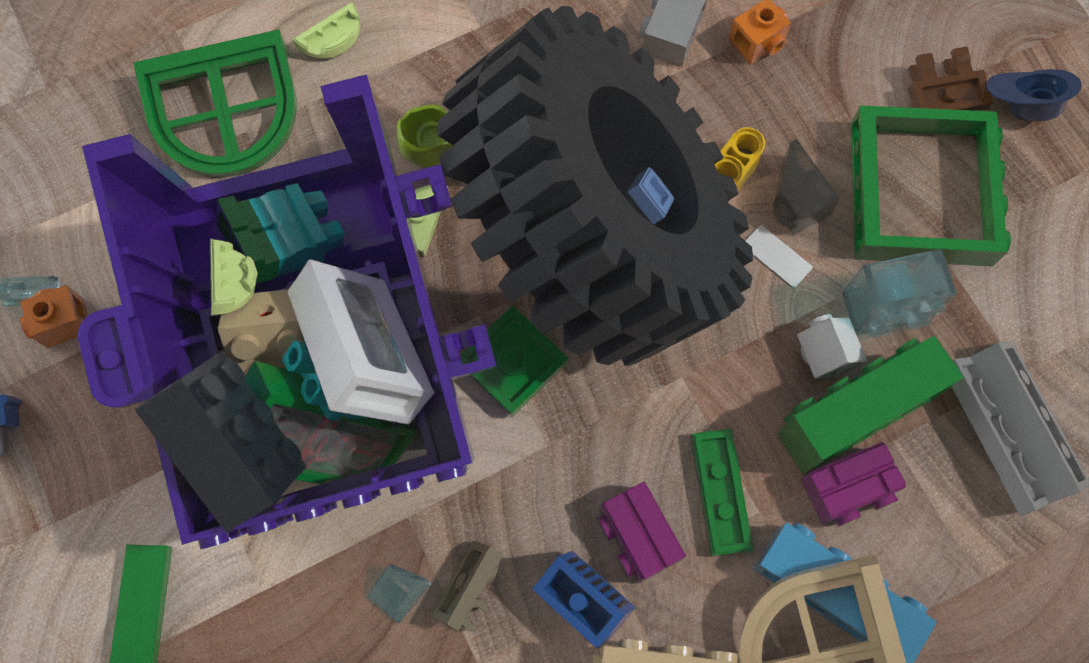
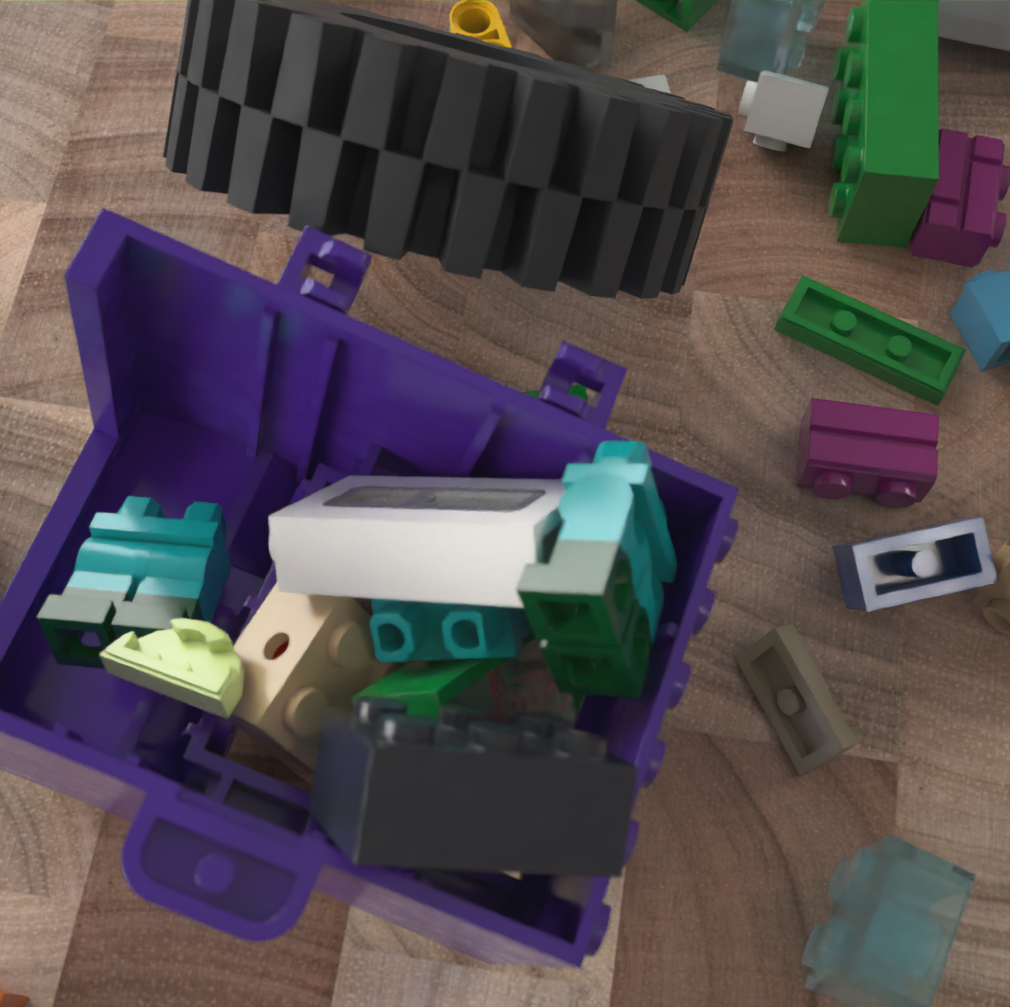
camera: 55 degrees left, 5 degrees down
(377, 427) = (603, 586): none -> hips
(398, 591) = (742, 798): clear light blue slope -> none

